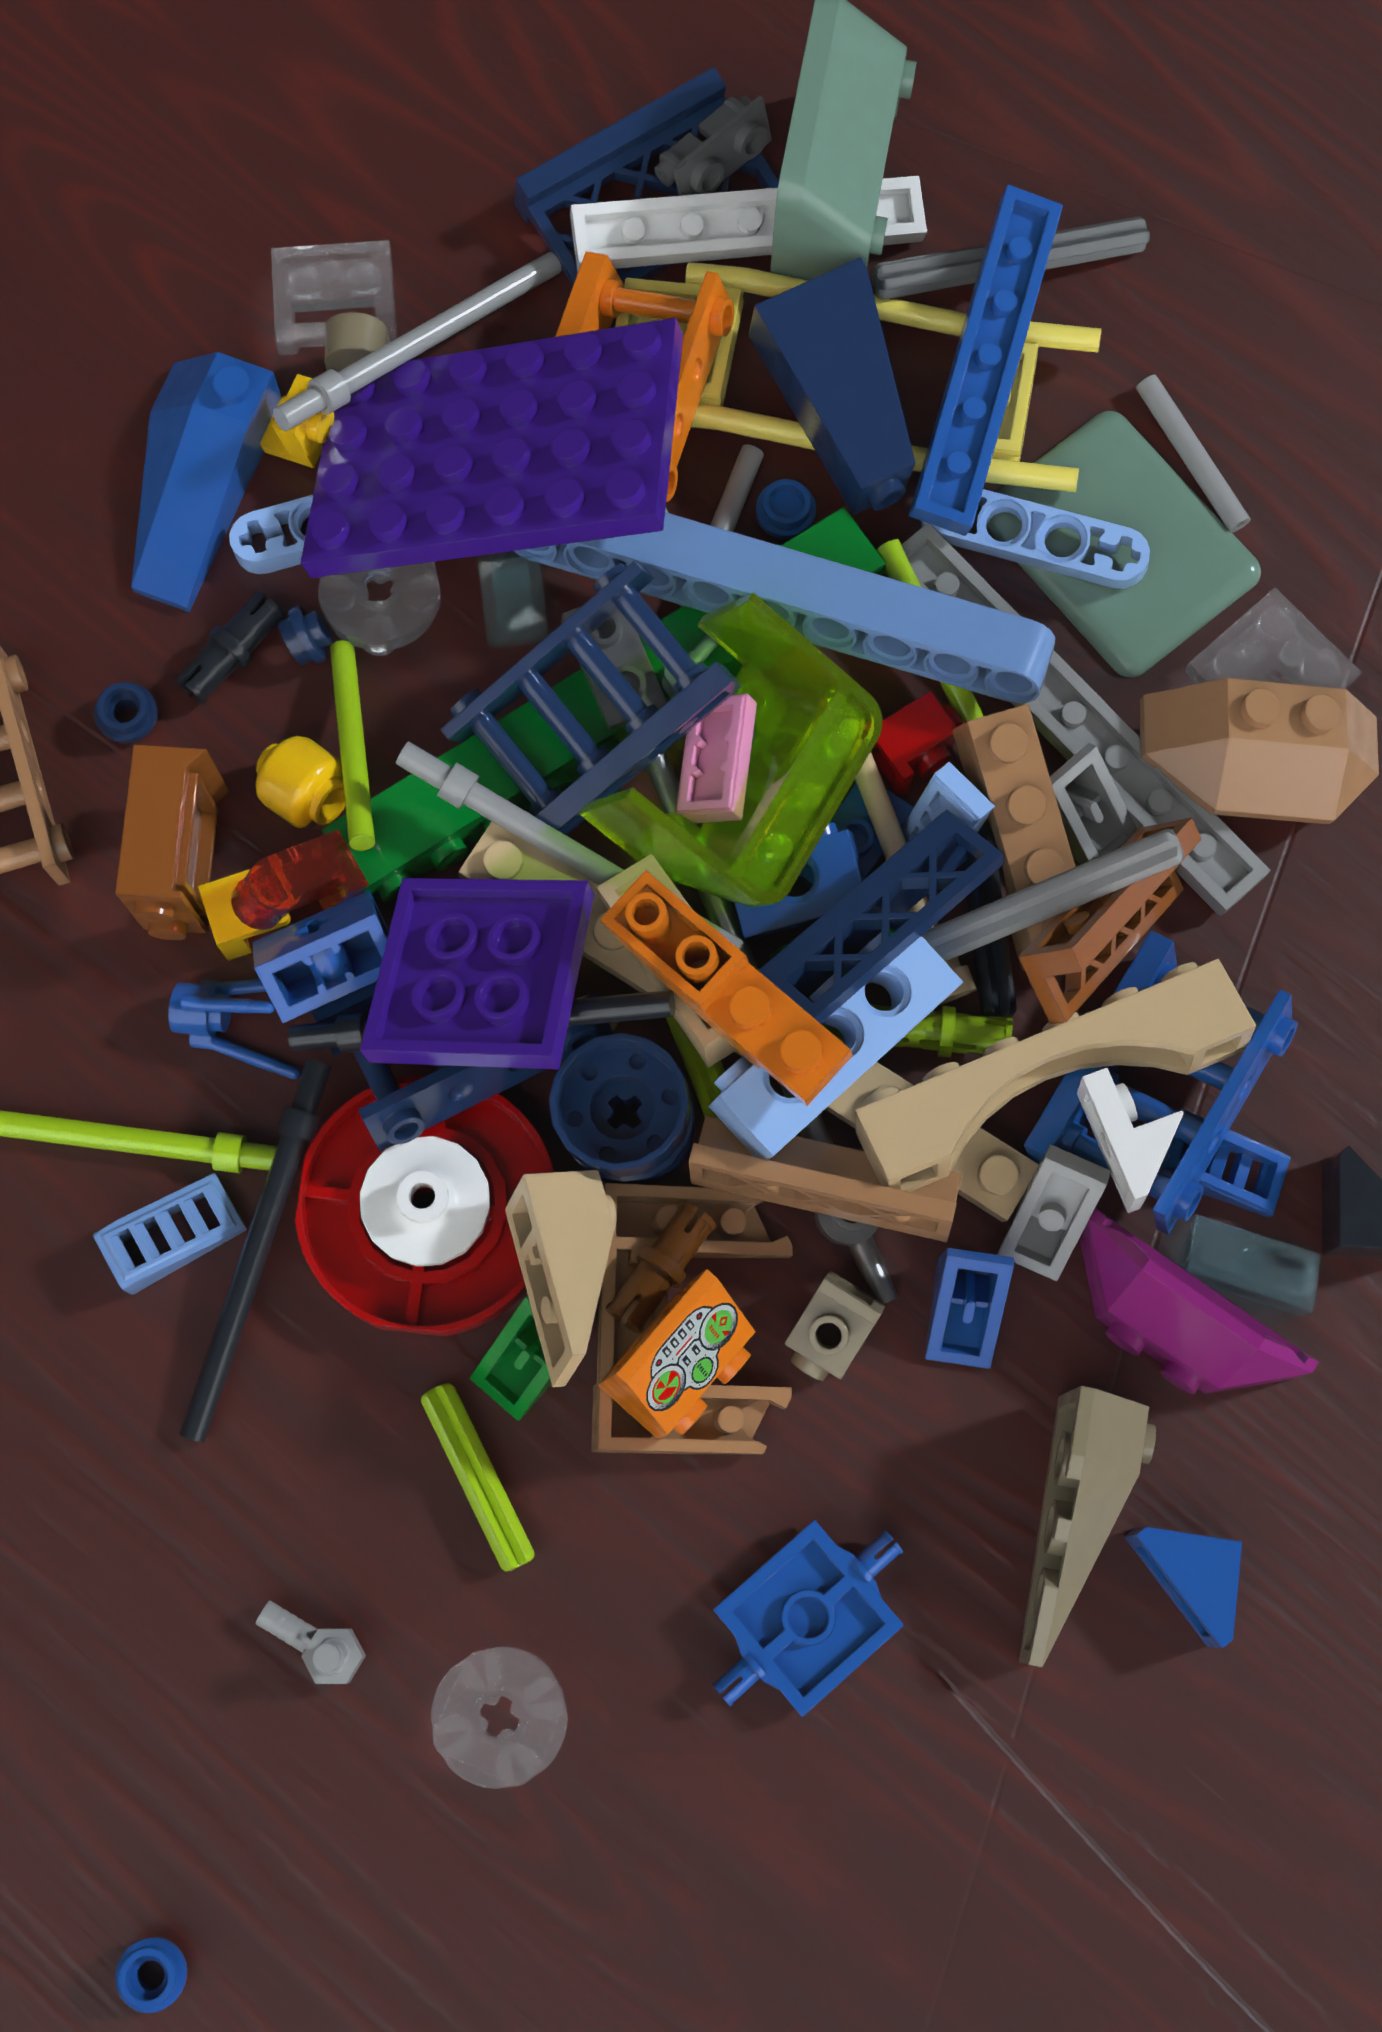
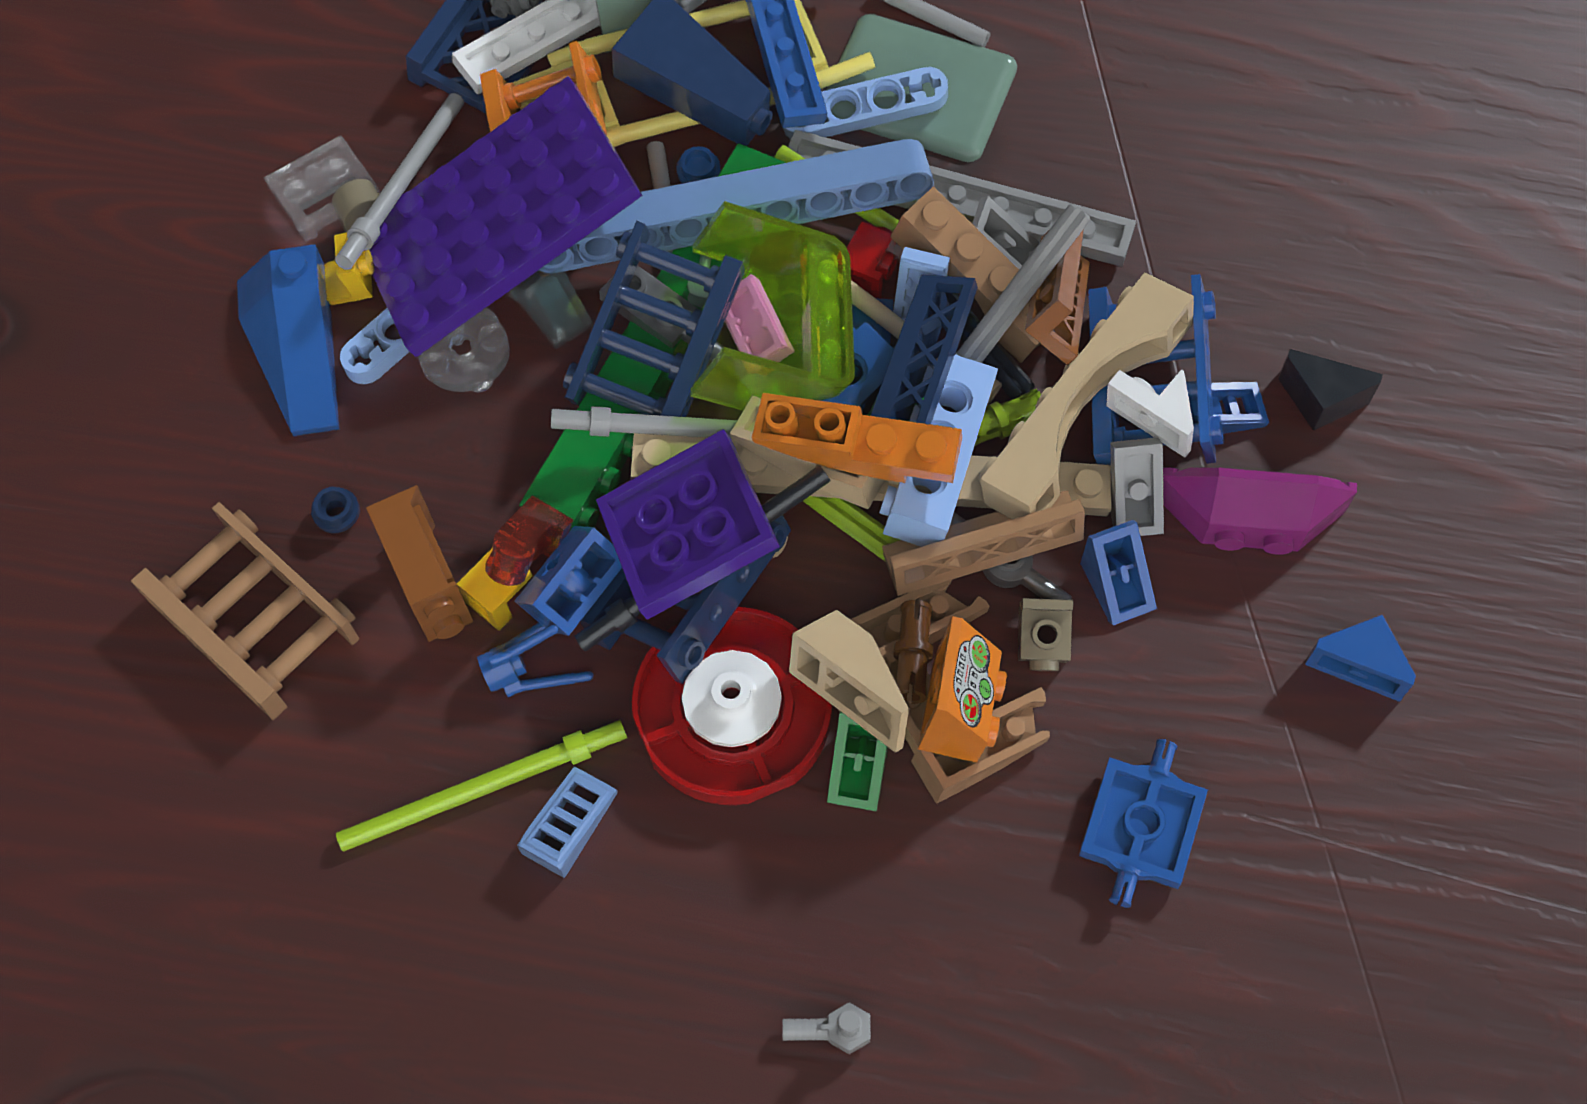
camera: 25 degrees left, 10 degrees down
(229, 647) = (382, 433): black pin -> none
(297, 1126) = (616, 699): black bar -> none
(300, 782) = (485, 488): yellow head -> none
(305, 635) = (431, 398): dark blue plate -> none
(352, 746) = (507, 446): lime bar -> none
(462, 1732) = (964, 1028): clear plate -> none
(477, 1477) = (872, 860): lime axle -> none
(618, 1074) = (825, 545): dark blue wheel -> none
(1089, 1477) = (1261, 631): dark tan wedge -> none
(1251, 1266) = (1286, 453): clear light blue slope -> none
(1262, 747) = (1082, 151): medium nougat wedge -> none
(1276, 644) = (1056, 94): clear plate -> none

